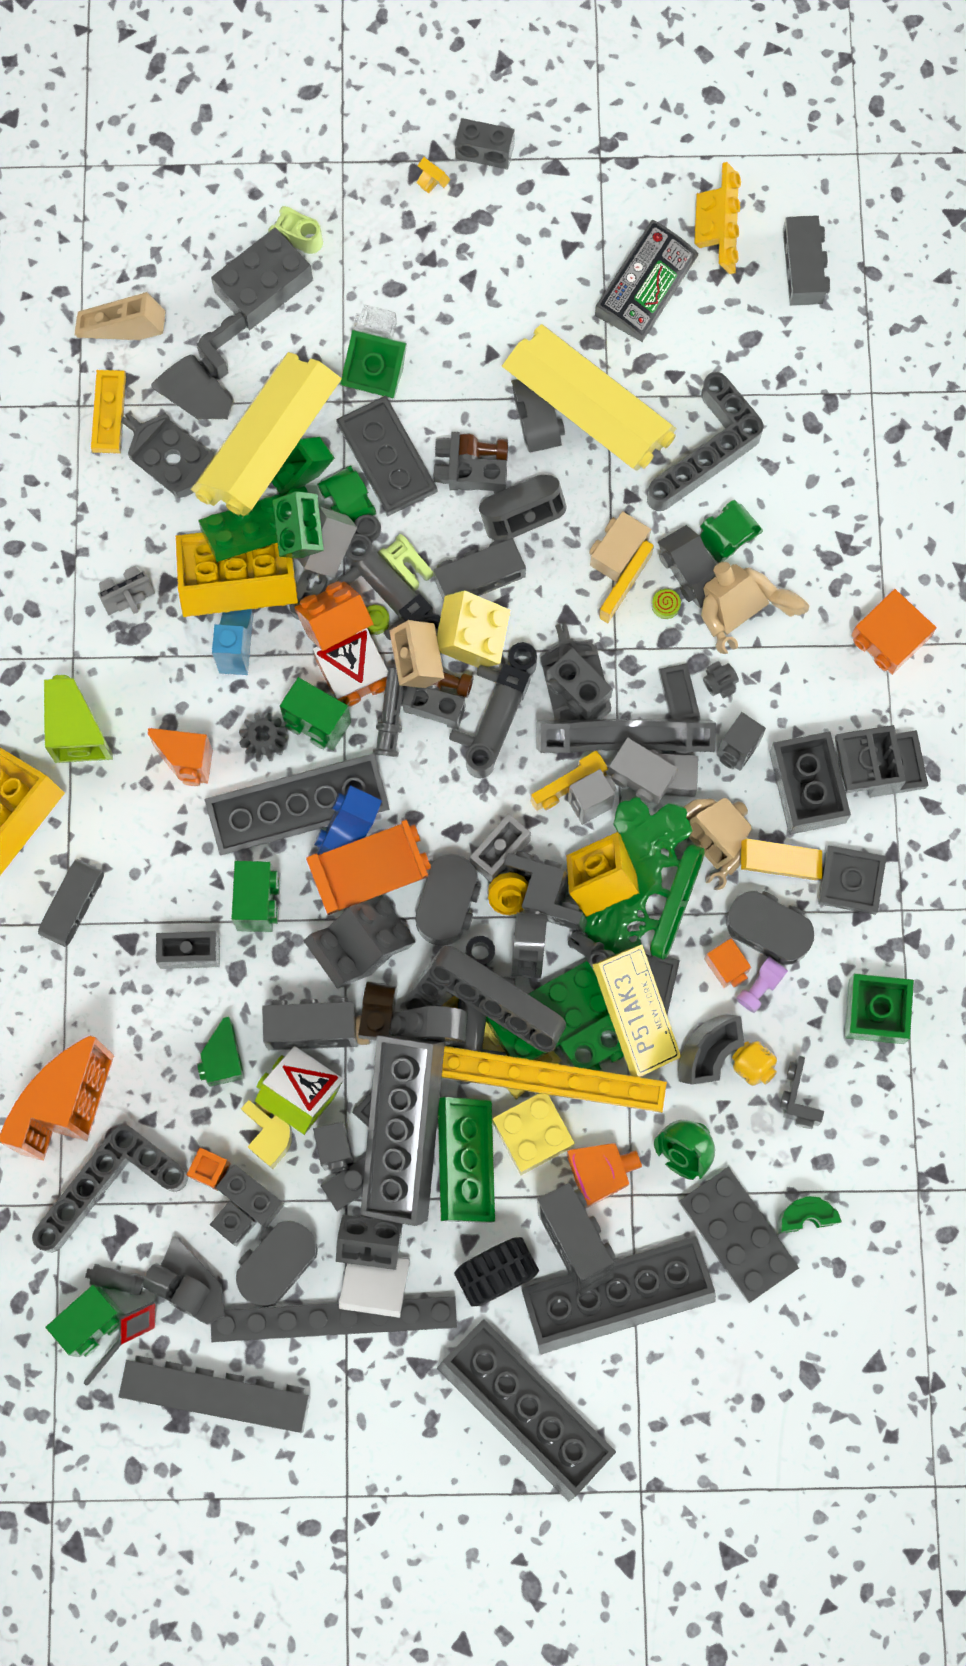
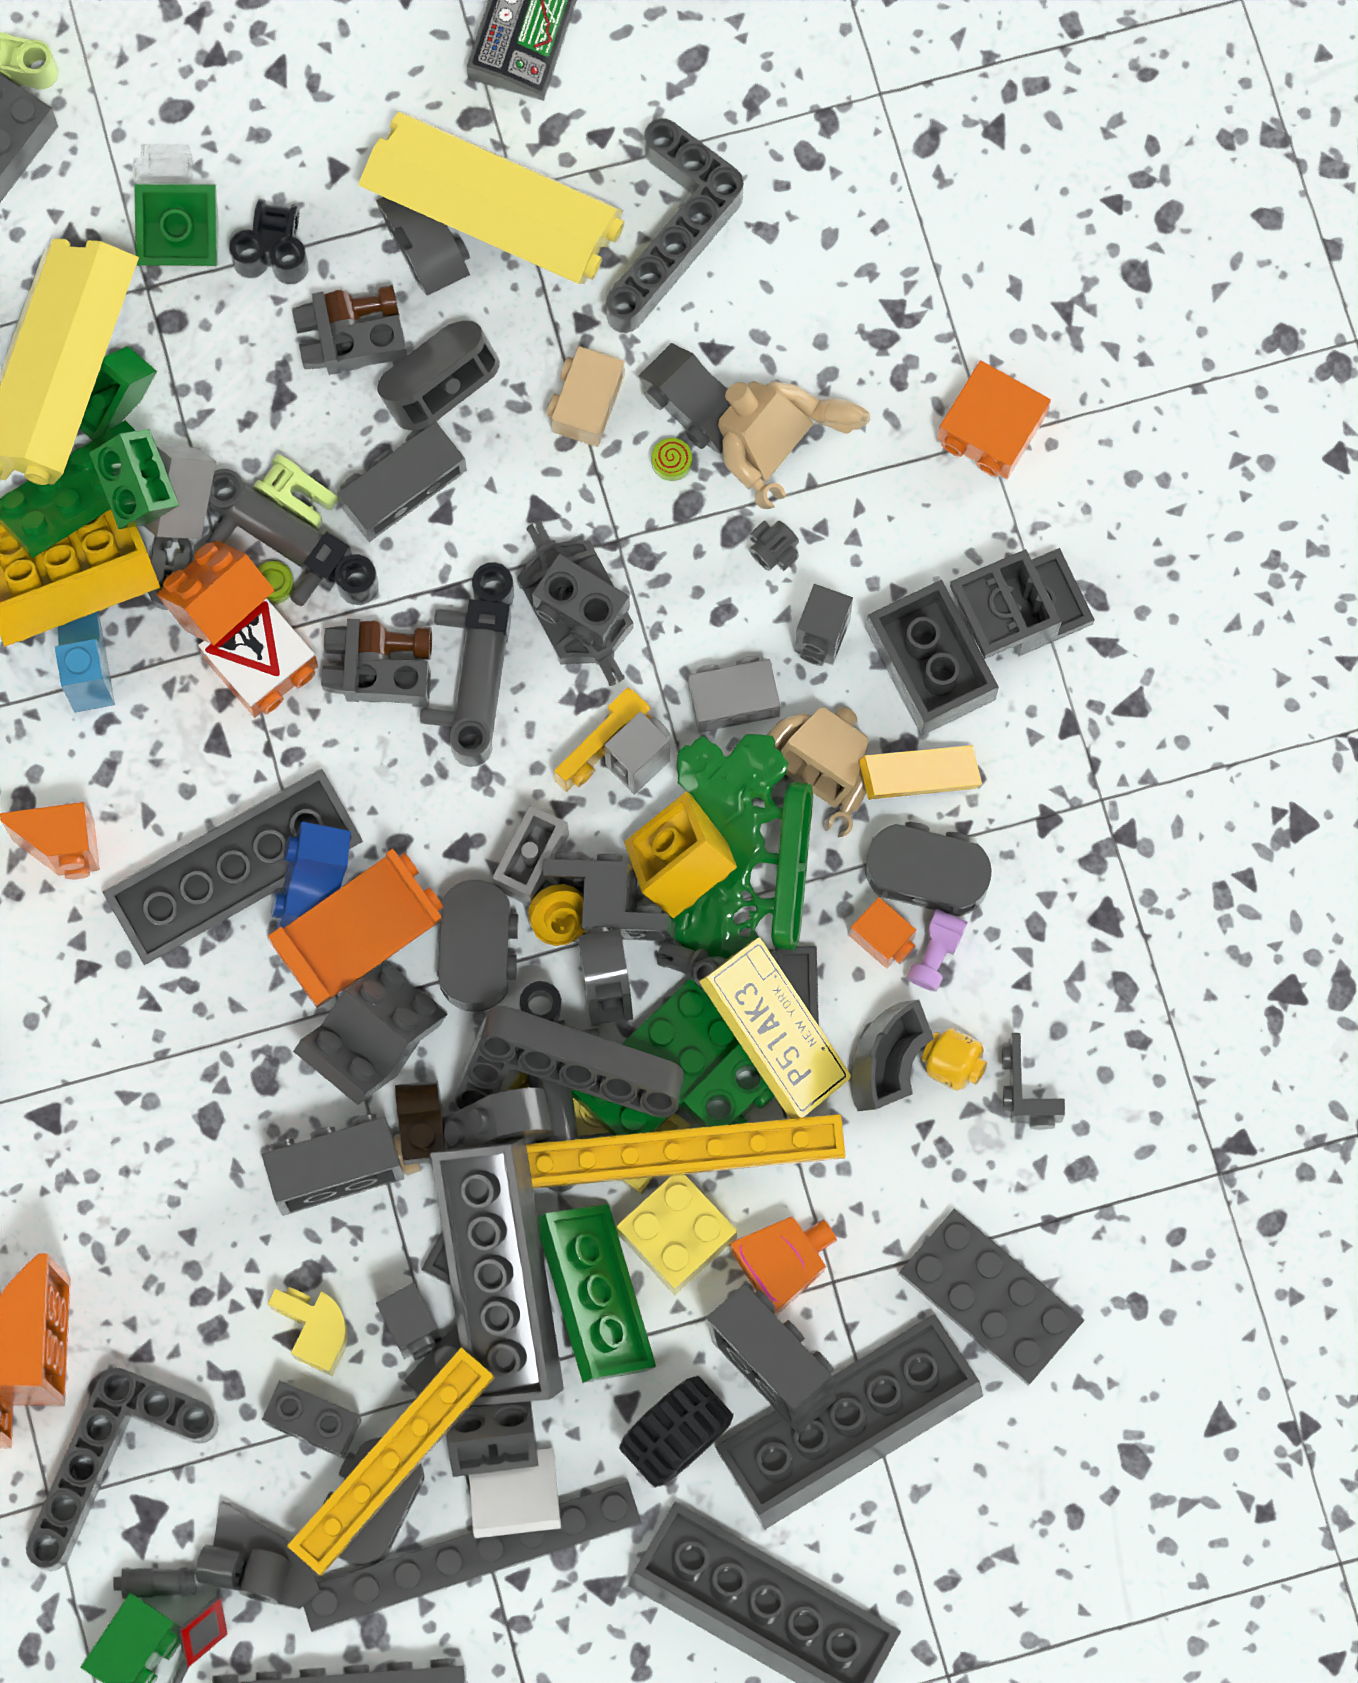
camera: 15 degrees left, 0 degrees up
(187, 950) = (135, 1106): dark grey brick -> none
(208, 1168) = (244, 1397): orange brick -> none
(221, 1056) = (220, 1241): green slope -> none
(232, 1224) = (298, 1463): dark grey brick -> none
(253, 896) = (208, 1010): green brick -> none
(266, 725) = (144, 791): dark grey gear -> none
(295, 1241) = (391, 1461): none -> yellow plate
(298, 1089) = (339, 1257): piece -> none
(315, 714) = (225, 736): green brick -> none
(347, 493) = (188, 417): green cylinder -> none
(368, 526) = (229, 455): dark grey plate -> none
(386, 455) = (228, 349): dark grey tile -> none
(389, 725) = (332, 725): dark grey pin -> none
(416, 654) = (346, 617): tan brick -> none
(437, 389) = (273, 238): none -> black piece
(472, 629) = (413, 563): light yellow brick -> none
(610, 734) = (662, 654): dark grey arch -> none
(626, 581) = (608, 442): yellow tile -> none
(642, 772) = (698, 700): light grey brick -> none
(679, 692) = (722, 580): dark grey tile -> none
(687, 1147) = (892, 1197): green cylinder -> none
(729, 531) = (732, 336): green cylinder -> none
(807, 1209) = (1077, 1237): green cylinder -> none
(852, 880) = (1023, 775): dark grey plate -> none
(879, 1009) = (1104, 941): green brick -> none

